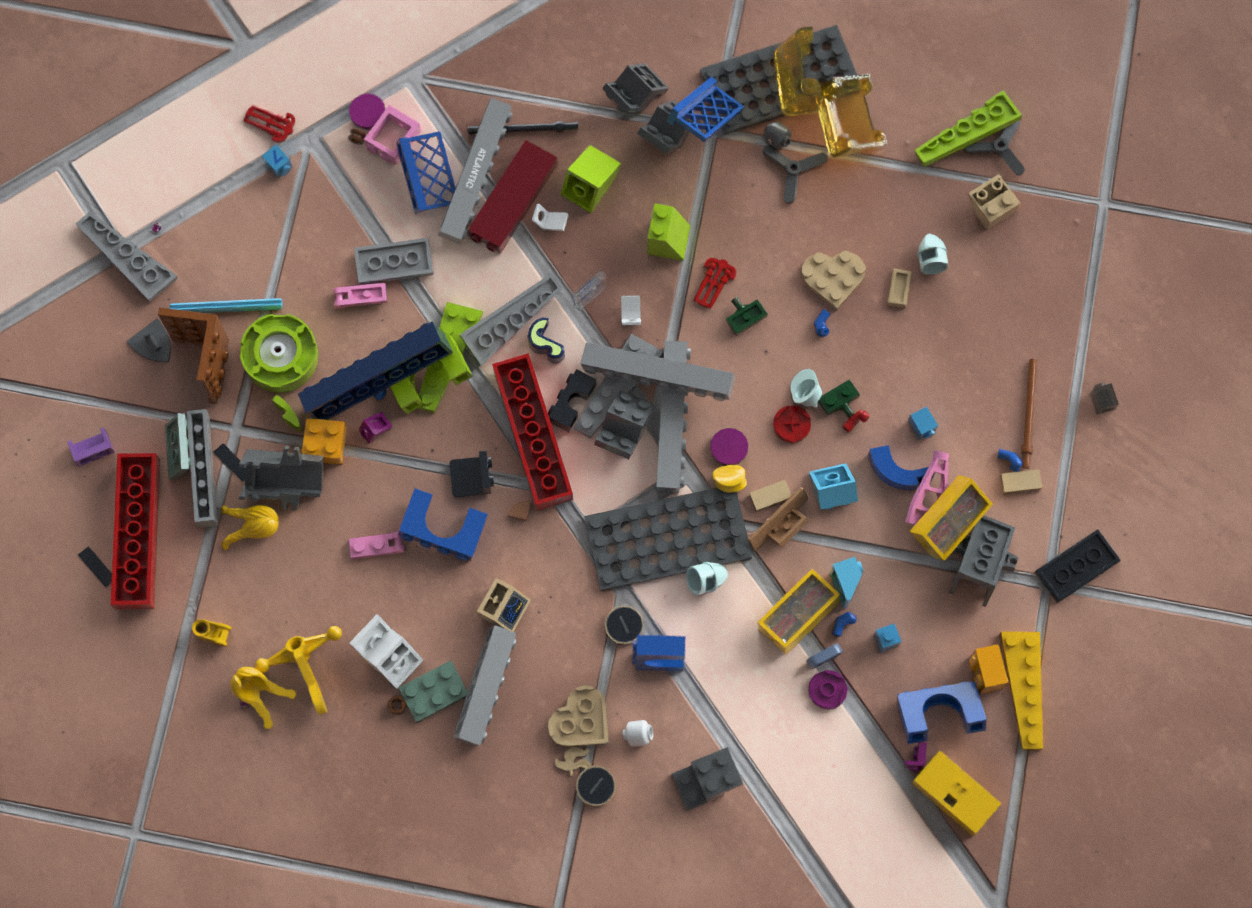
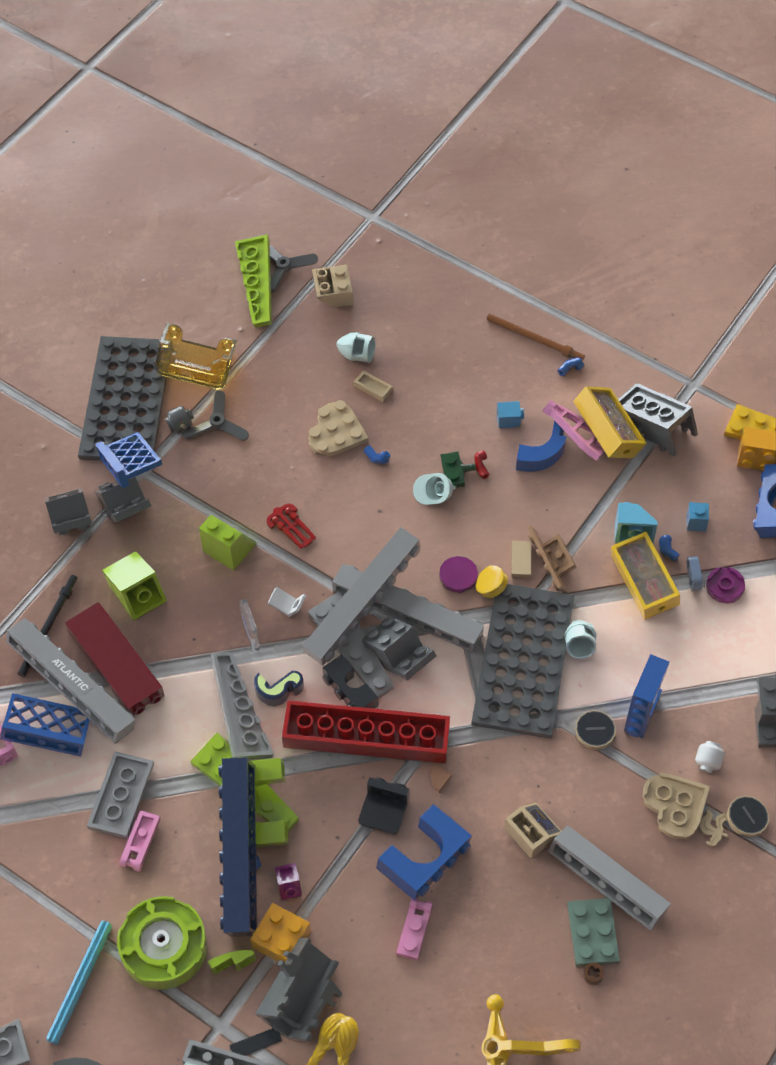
camera: 65 degrees left, 15 degrees down
(201, 330) = (103, 1000): dark orange bracket -> none
(386, 651) = (535, 957): white bracket -> none
(550, 220) = (158, 634): white bracket -> none
(745, 315) = (338, 511): dark green plate -> none
(792, 424) = (460, 516): red tile -> none
(795, 93) = (135, 378): clear yellow windscreen -> none
(833, 486) = (536, 503): medium azure slope -> none
(1021, 481) = (594, 366): tan tile -> none
(1077, 566) = (687, 356): black tile -> none
(1104, 398) = (547, 279): clear smoke brick -> none

